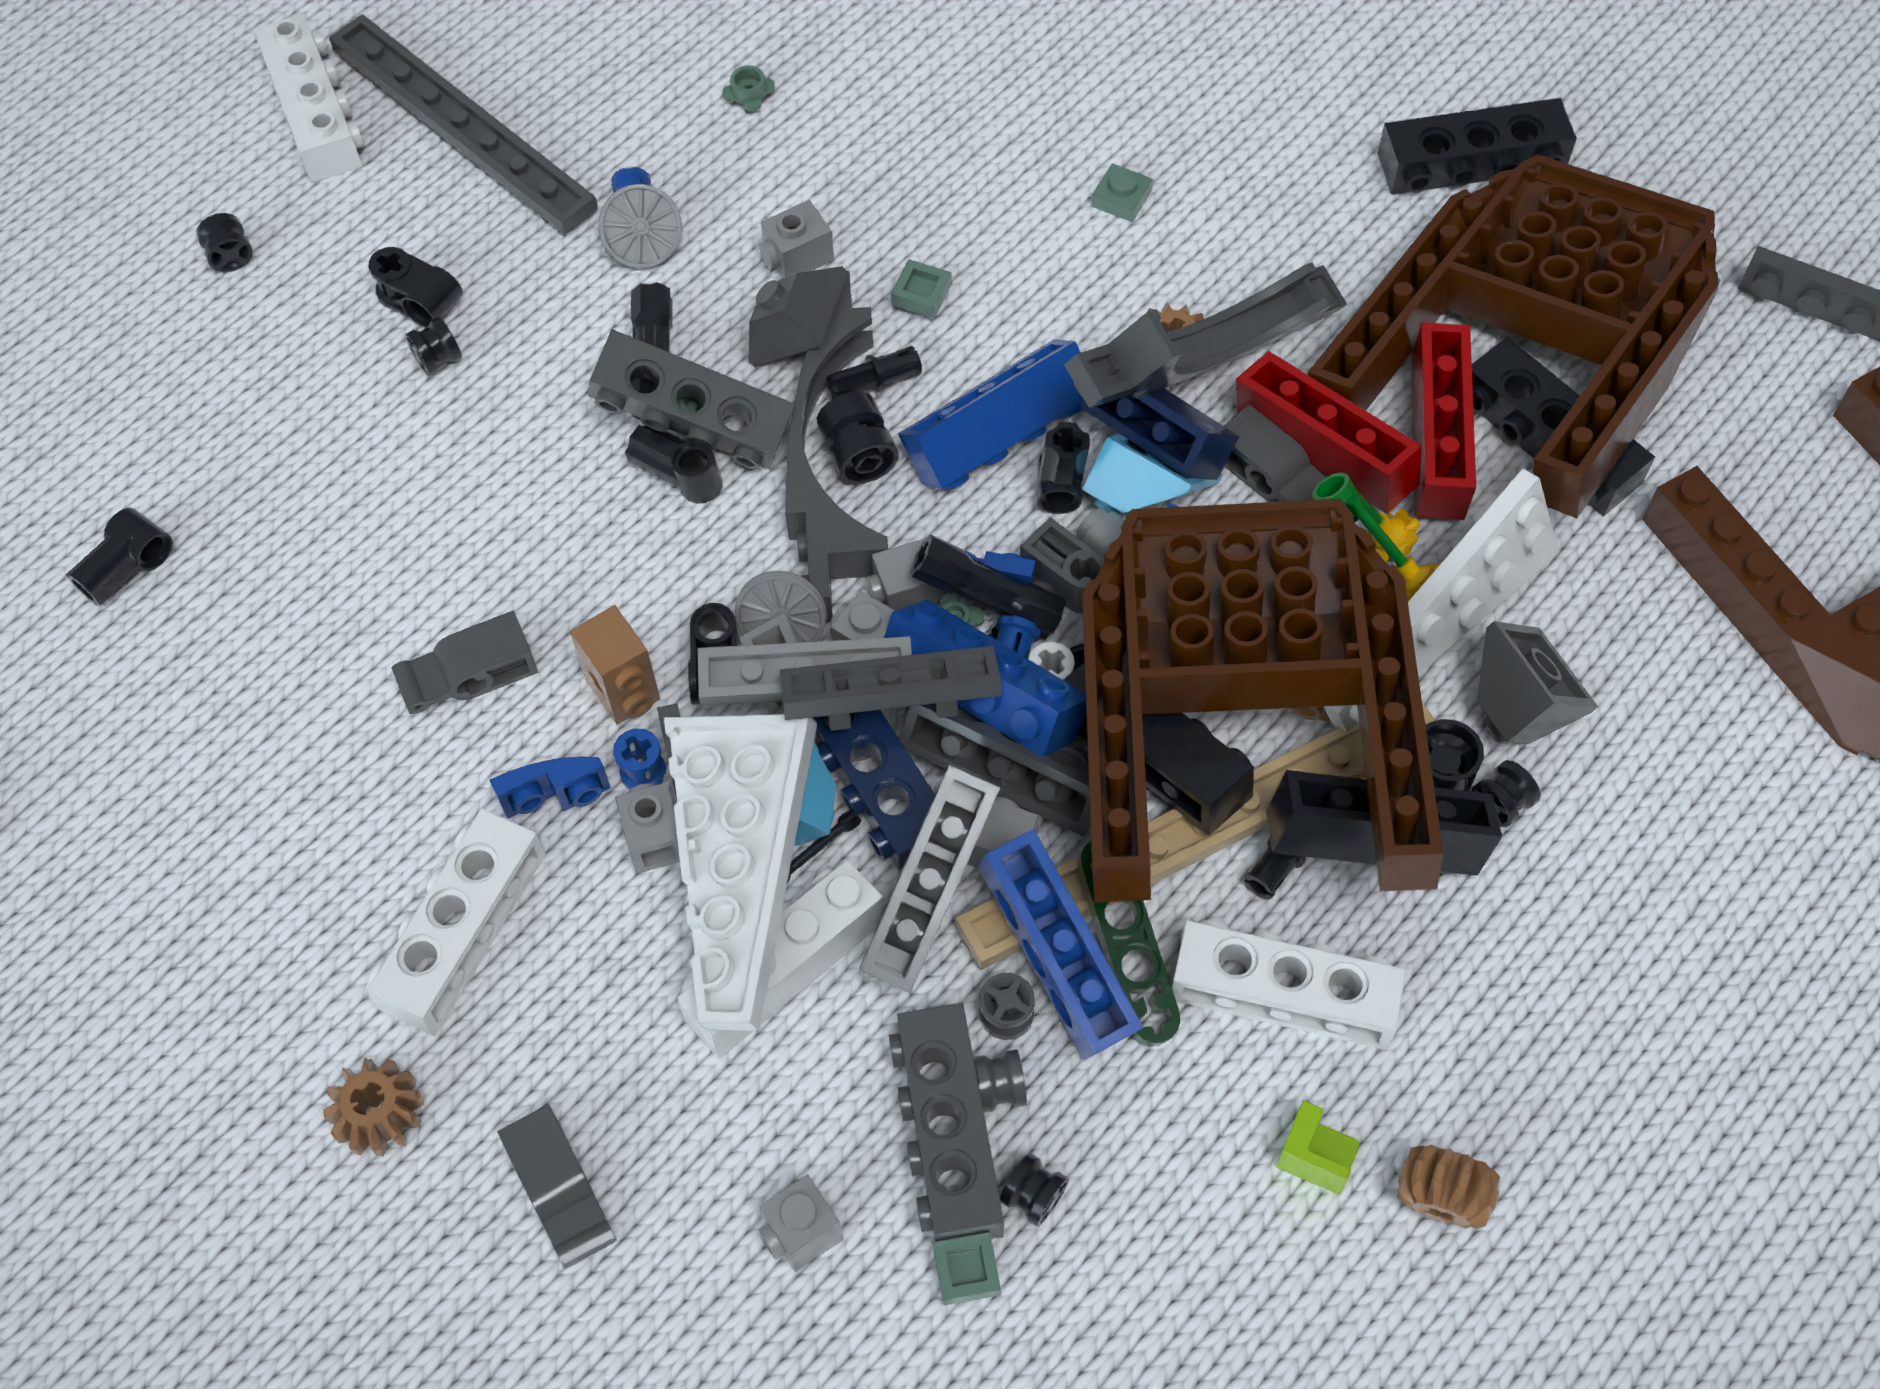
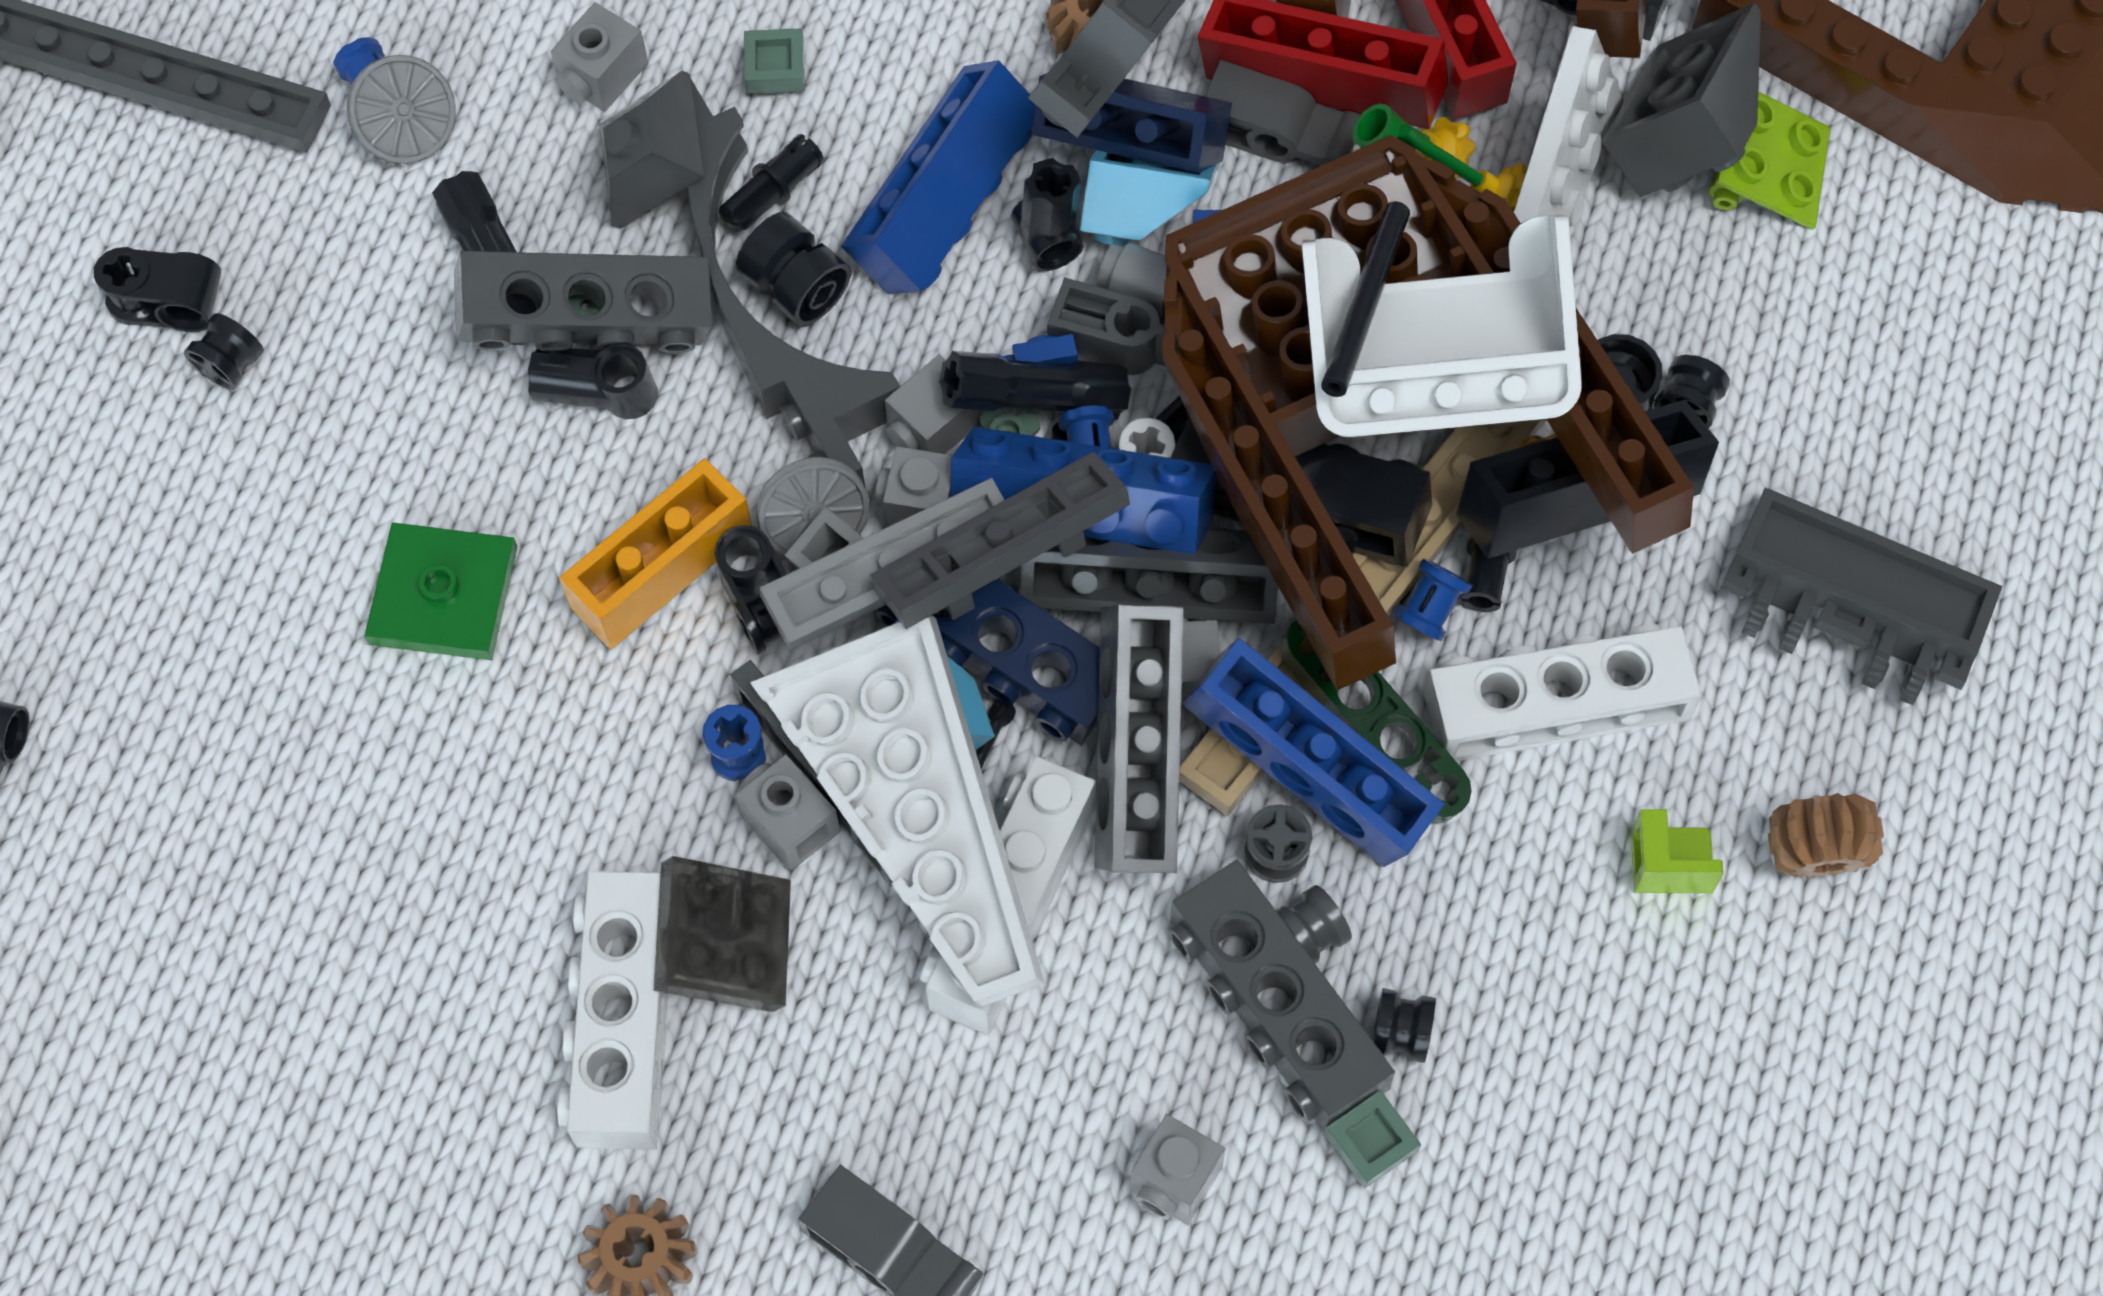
camera: 25 degrees left, 5 degrees up
(467, 664) = (472, 714): dark grey piece -> none
(494, 568) = (441, 591): none -> green plate
(555, 896) = (722, 934): none -> clear smoke plate
(570, 779) = (662, 800): blue slope -> none
(616, 665) = (657, 645): medium nougat brick -> none
(658, 595) = (654, 554): none -> light orange brick
(1218, 868) = (1432, 599): none -> blue bush
(1250, 609) = (1365, 299): none -> black piece
(1293, 667) = (1452, 345): none -> white windscreen
(1527, 685) = (1661, 264): dark grey slope -> none
(1576, 1000) = (1862, 587): none -> dark grey hinge
(1604, 573) = (1691, 105): none -> dark grey slope
(1657, 637) = (1780, 165): none -> lime hinge

